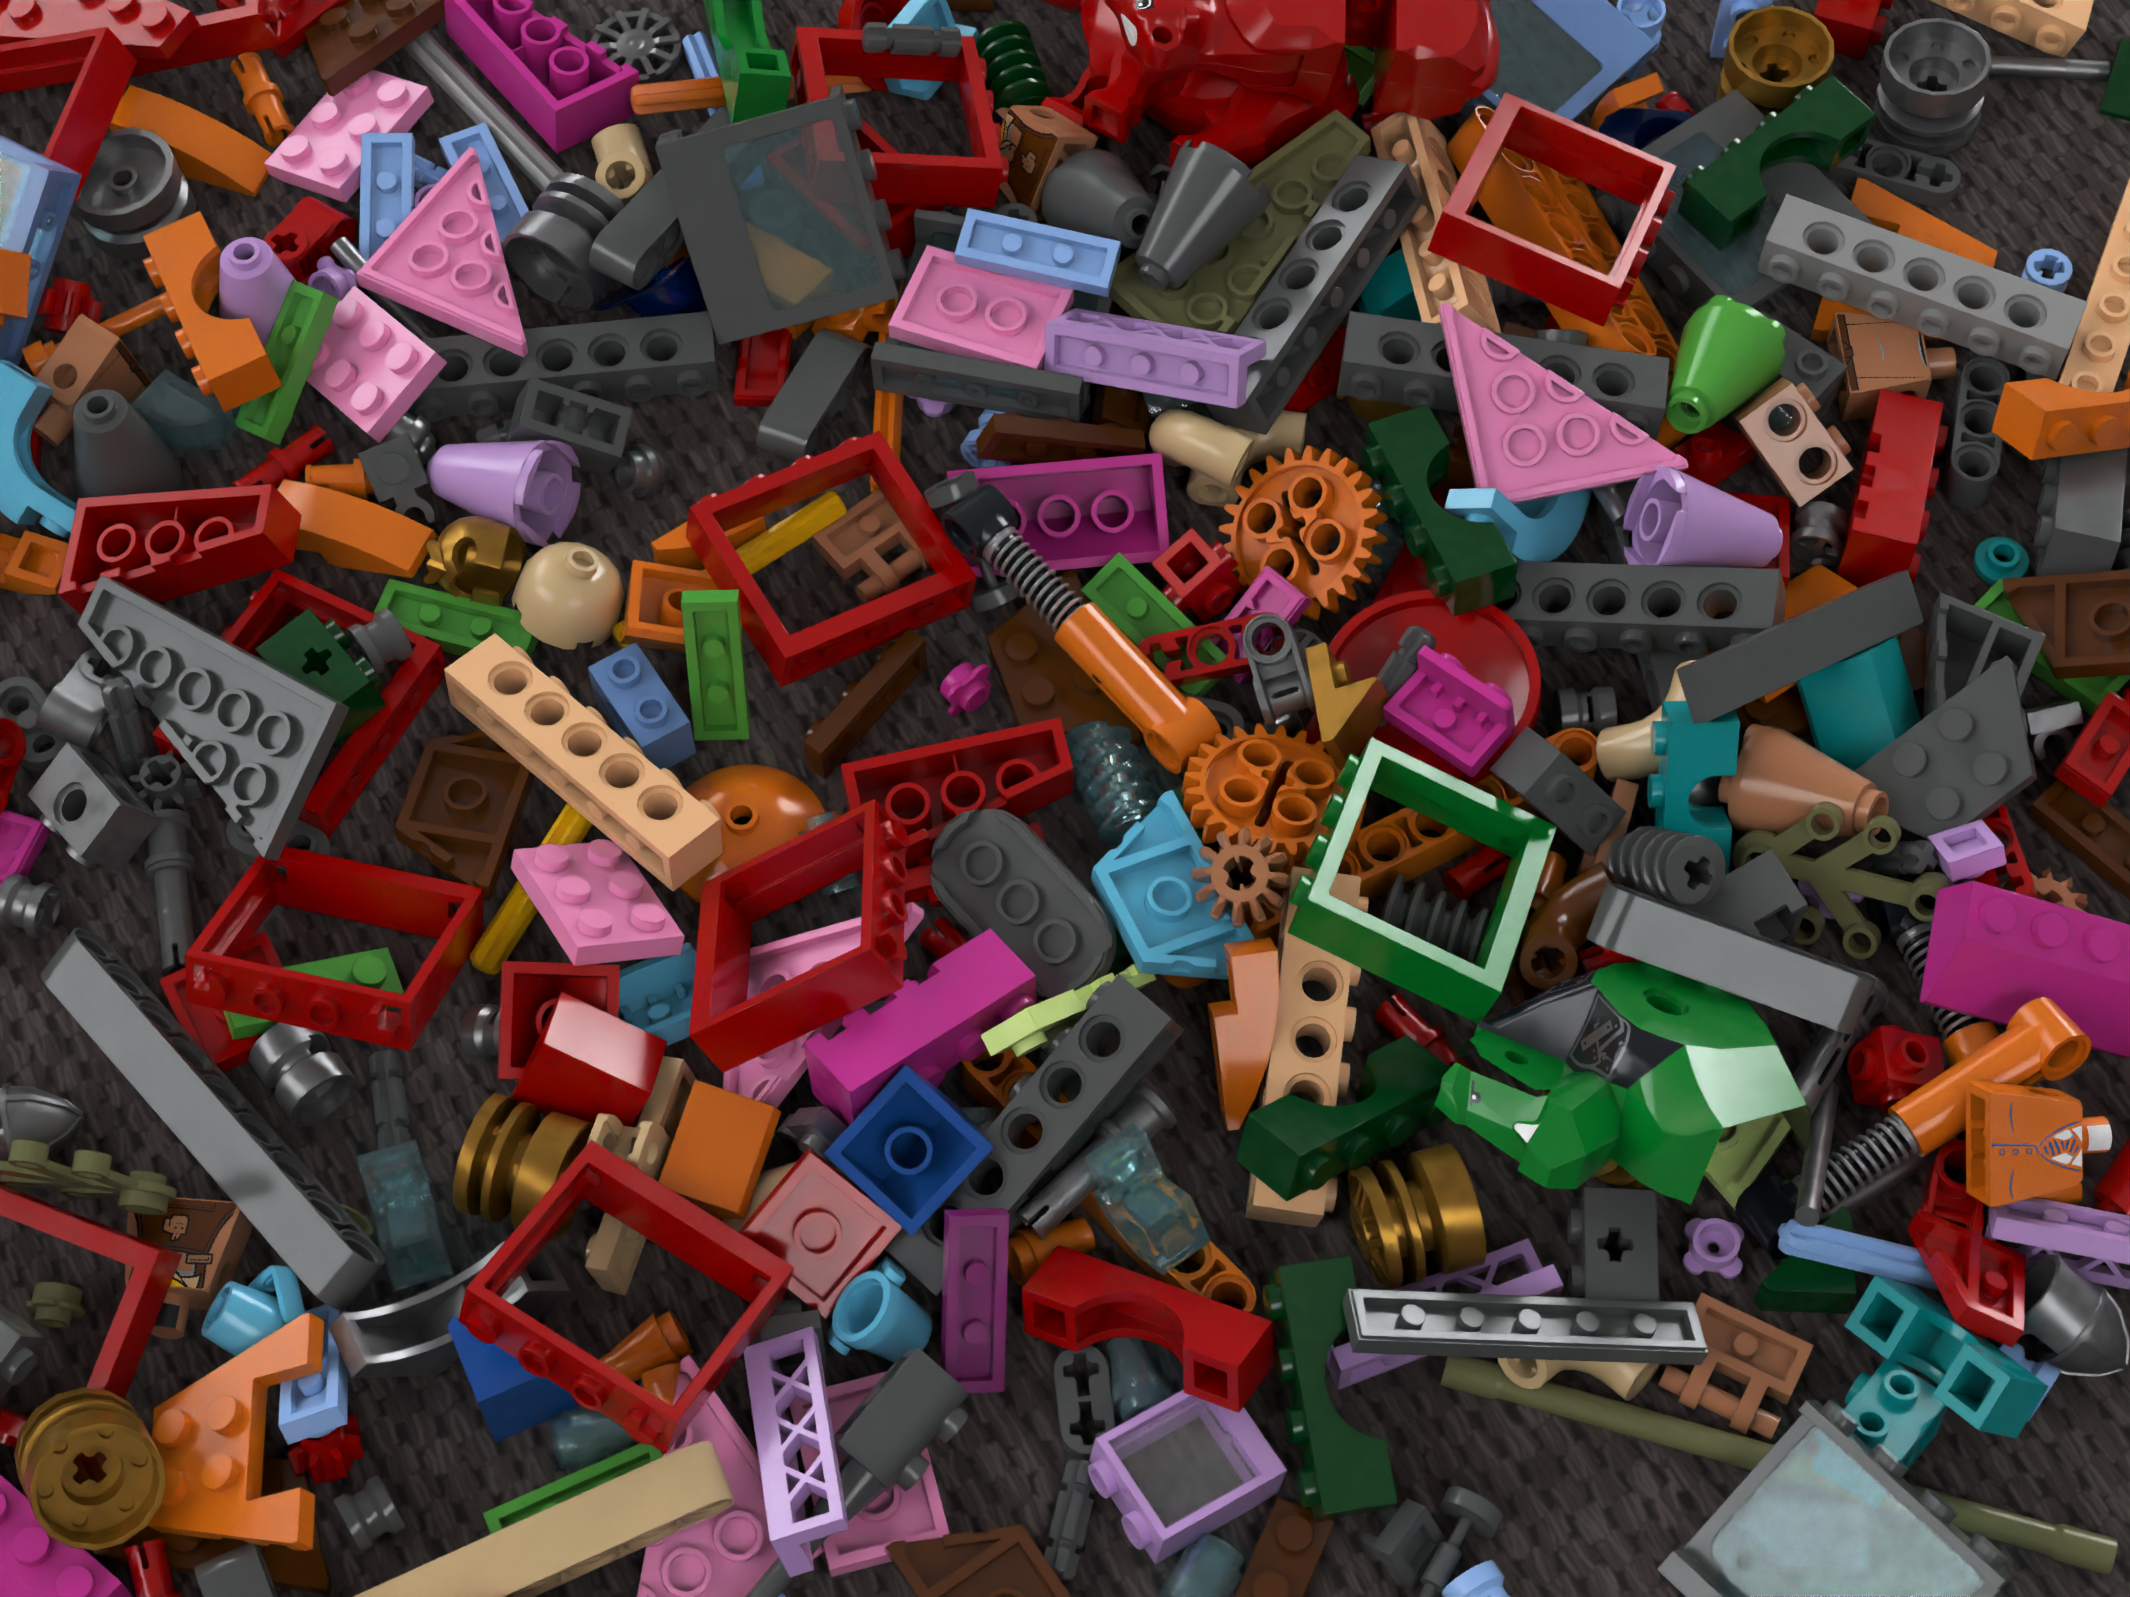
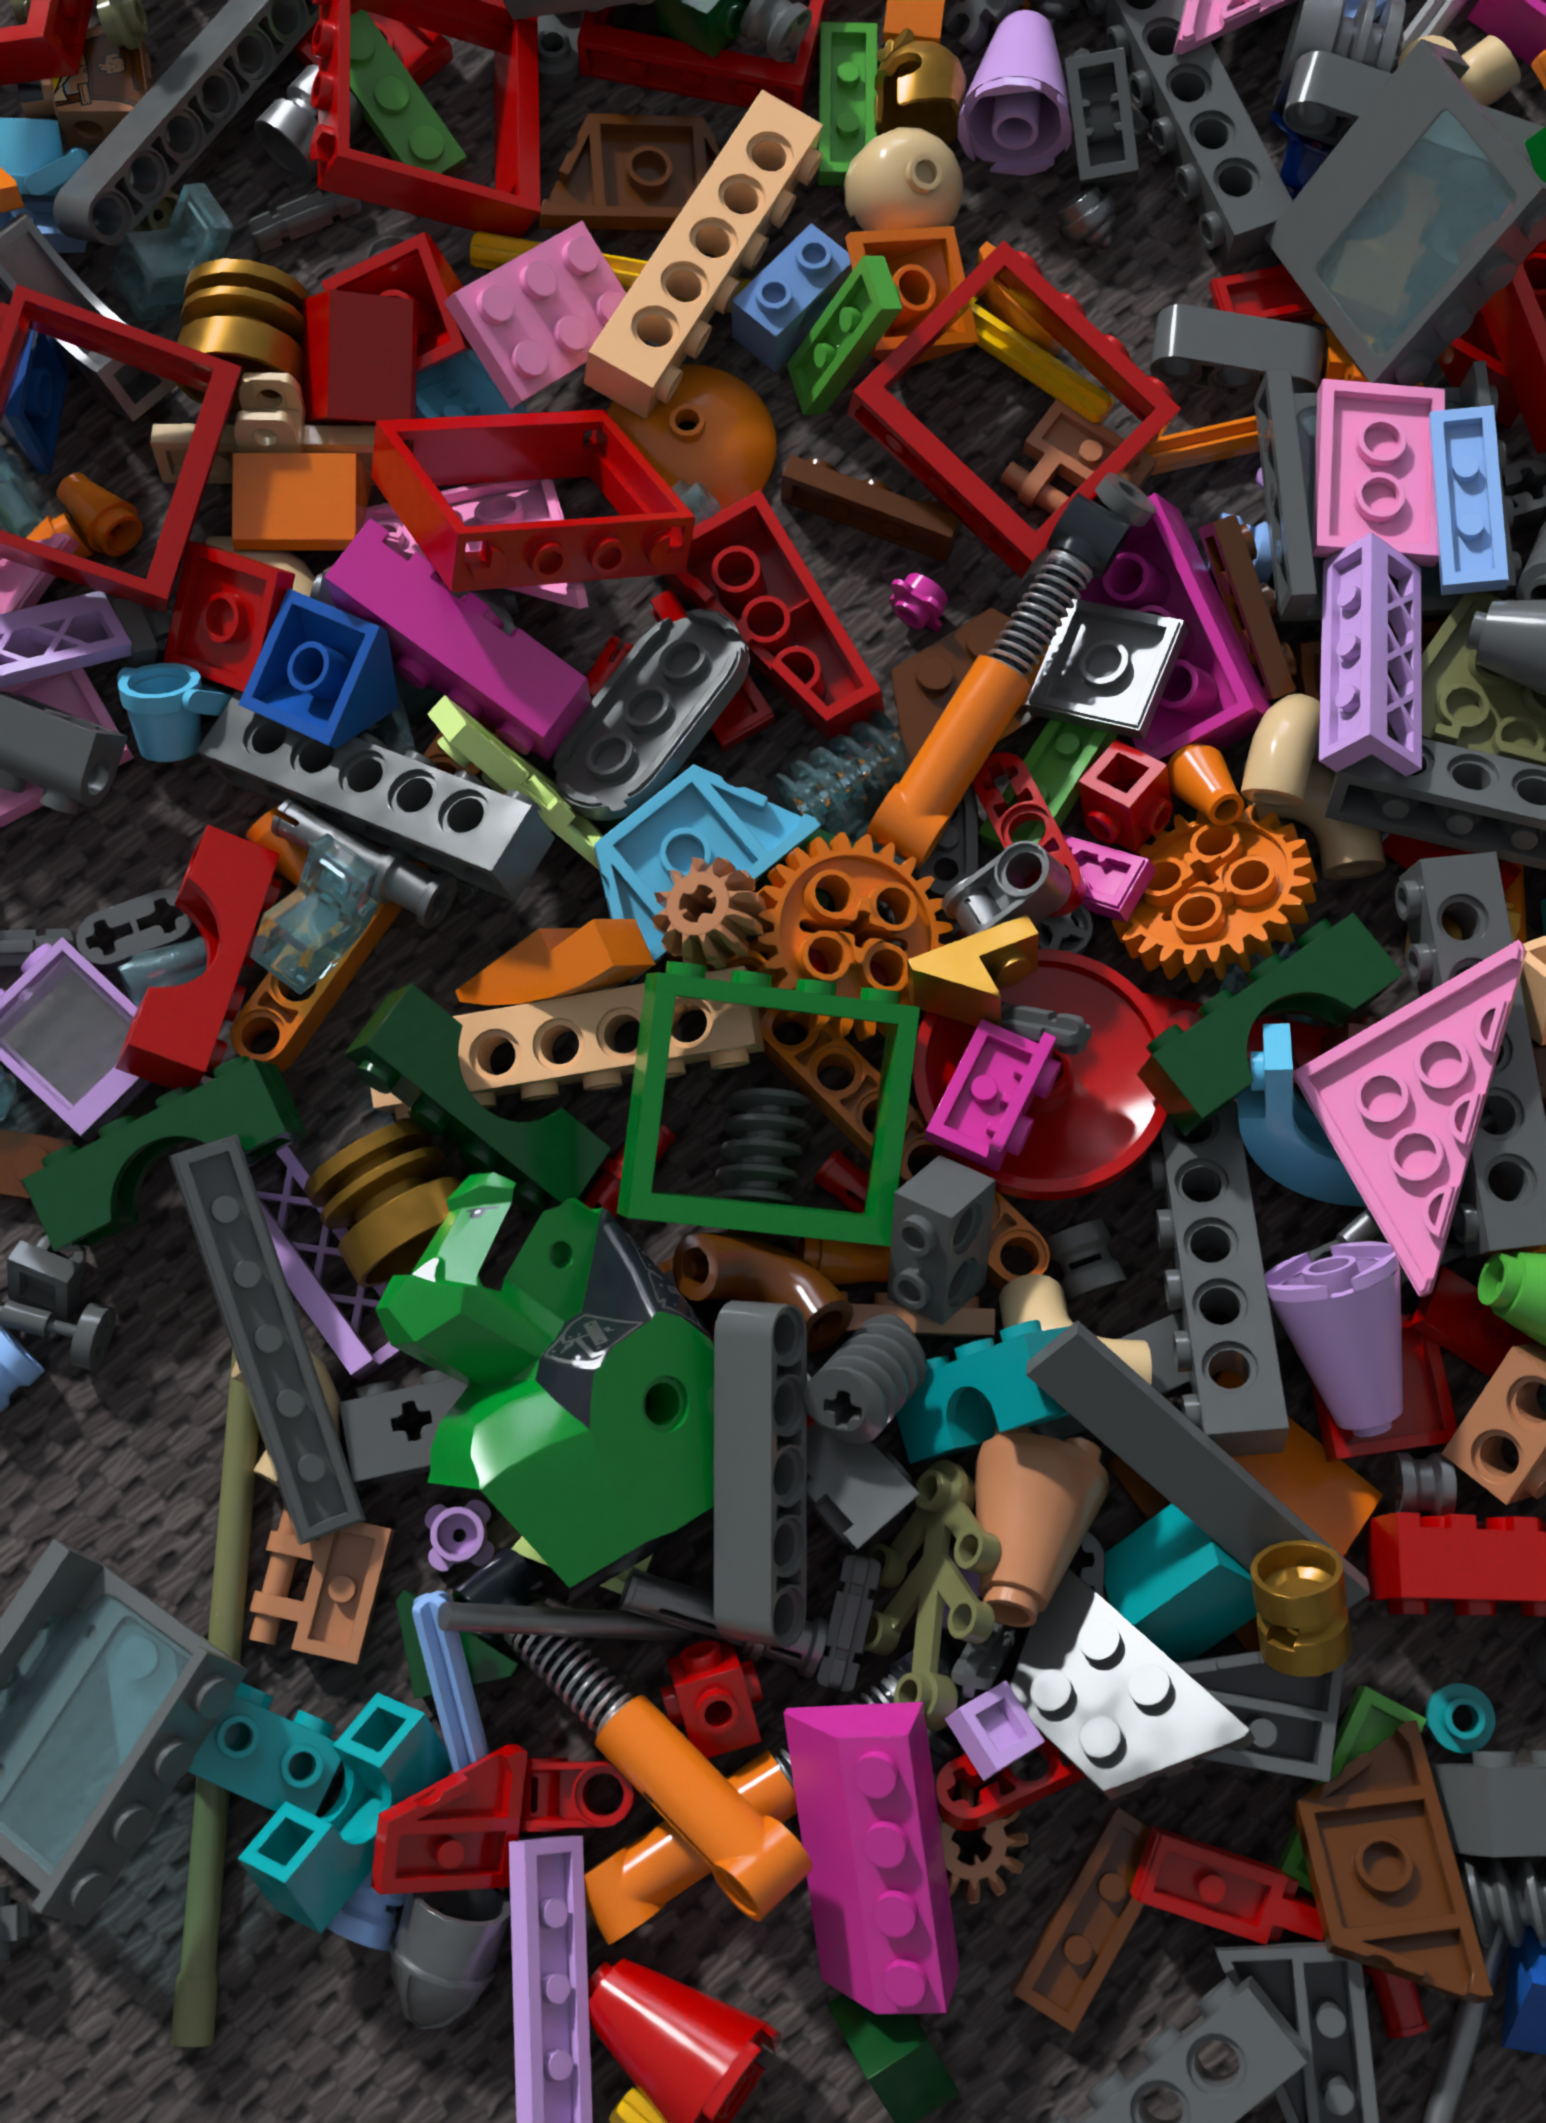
camera: 70 degrees right, 15 degrees up
(975, 1298) = (192, 784): magenta plate -> none
(1092, 546) = (1107, 668): none -> flat silver plate
(1208, 511) = (1204, 782): none -> orange cone
(1851, 953) = (849, 1623): none -> dark grey axle
(1915, 608) = (1301, 1608): none -> pearl gold wheel
(2026, 1141) = (619, 1863): orange torso -> none
(2051, 721) = (1242, 1806): flat silver tile -> none

